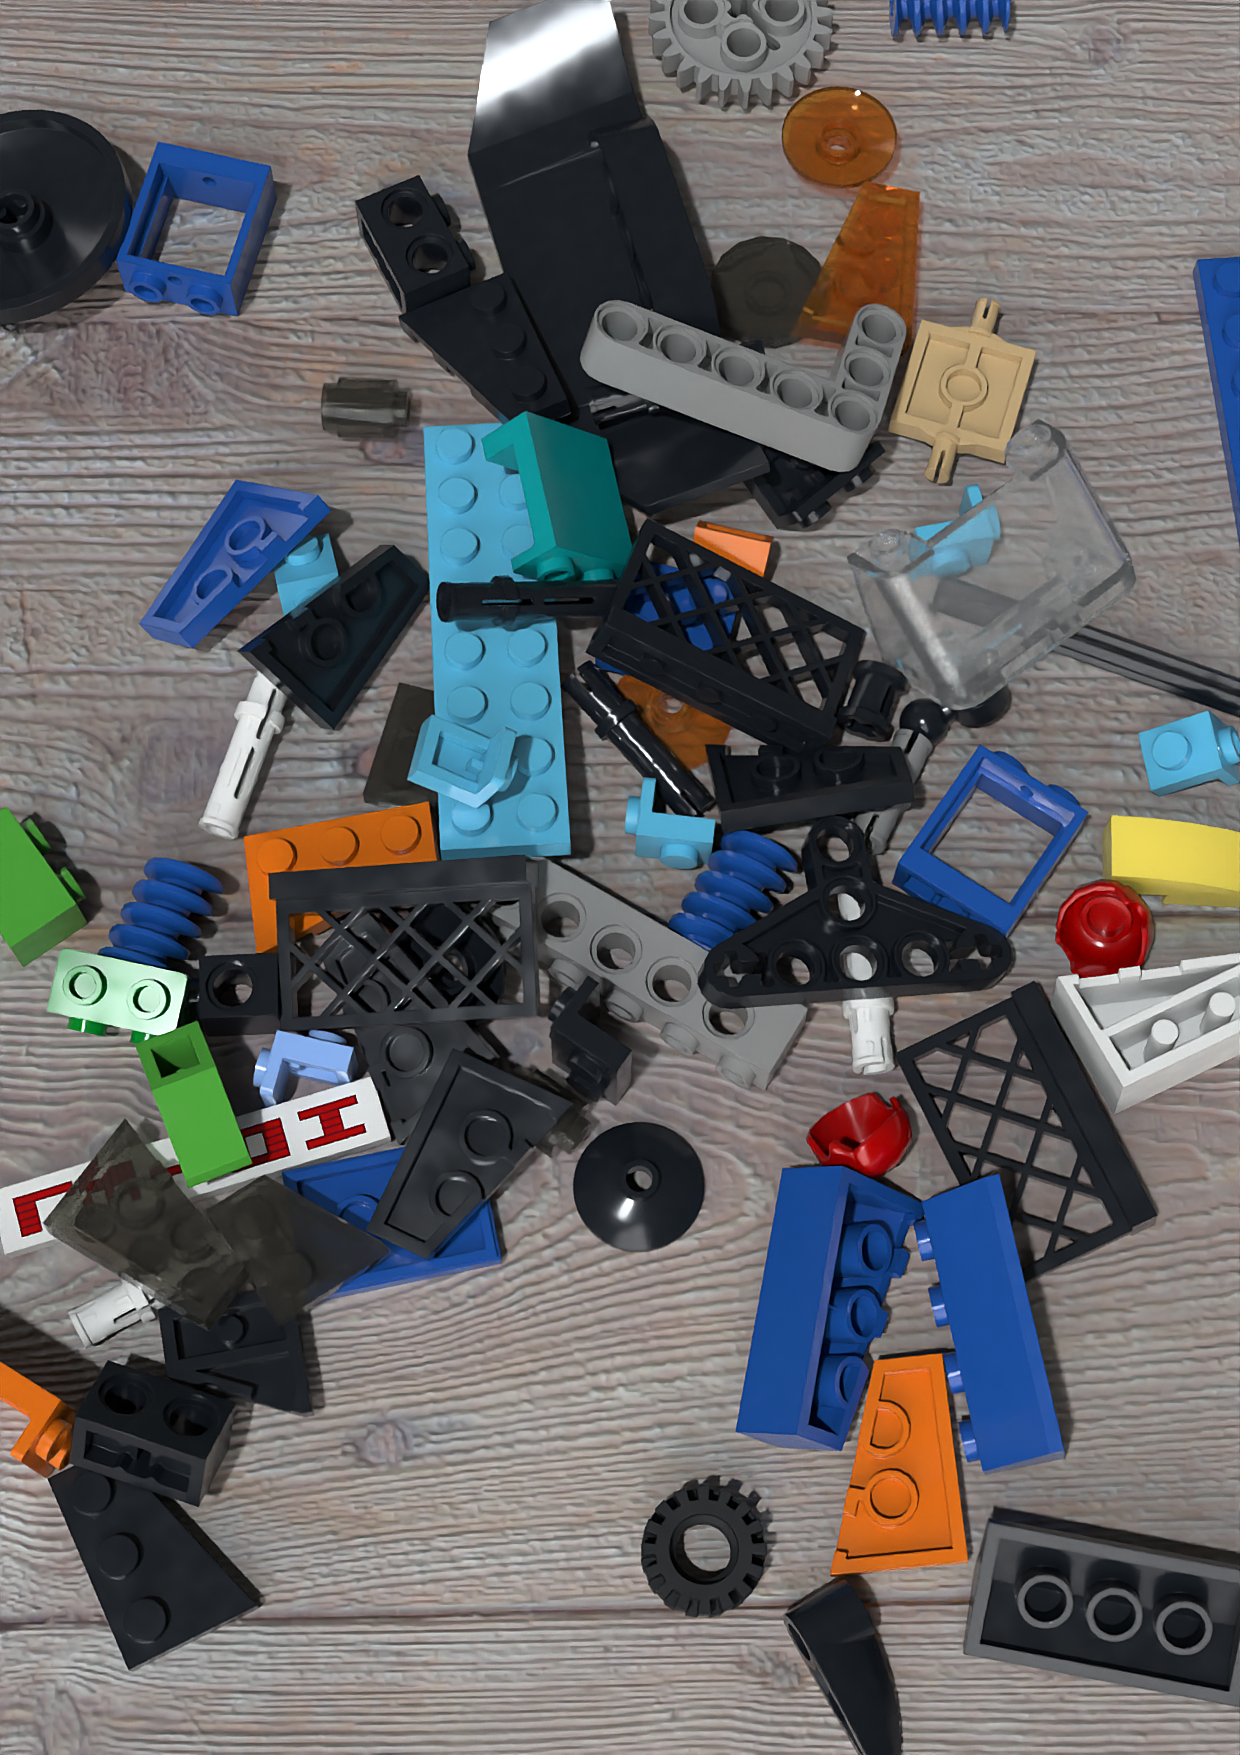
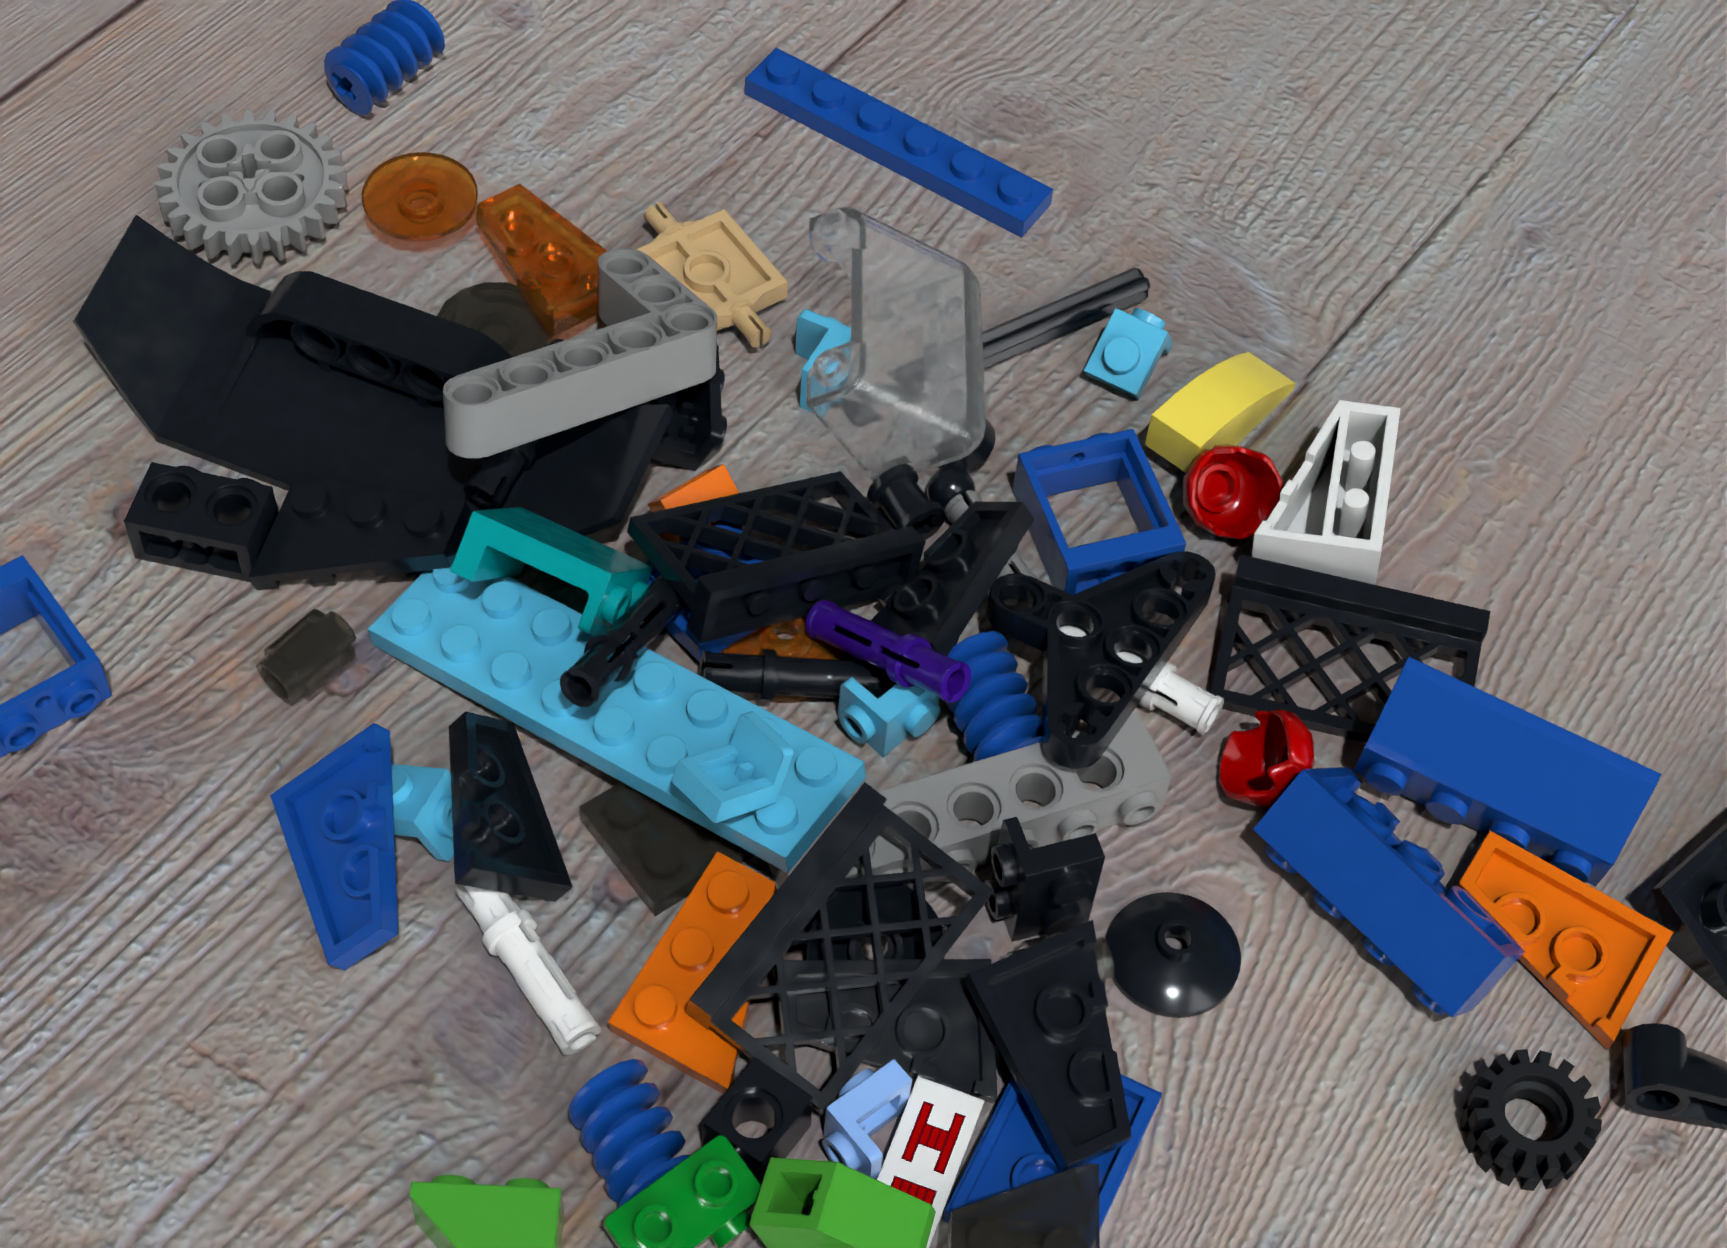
camera: 55 degrees left, 15 degrees down
(693, 803) = (936, 671): none -> dark purple pin

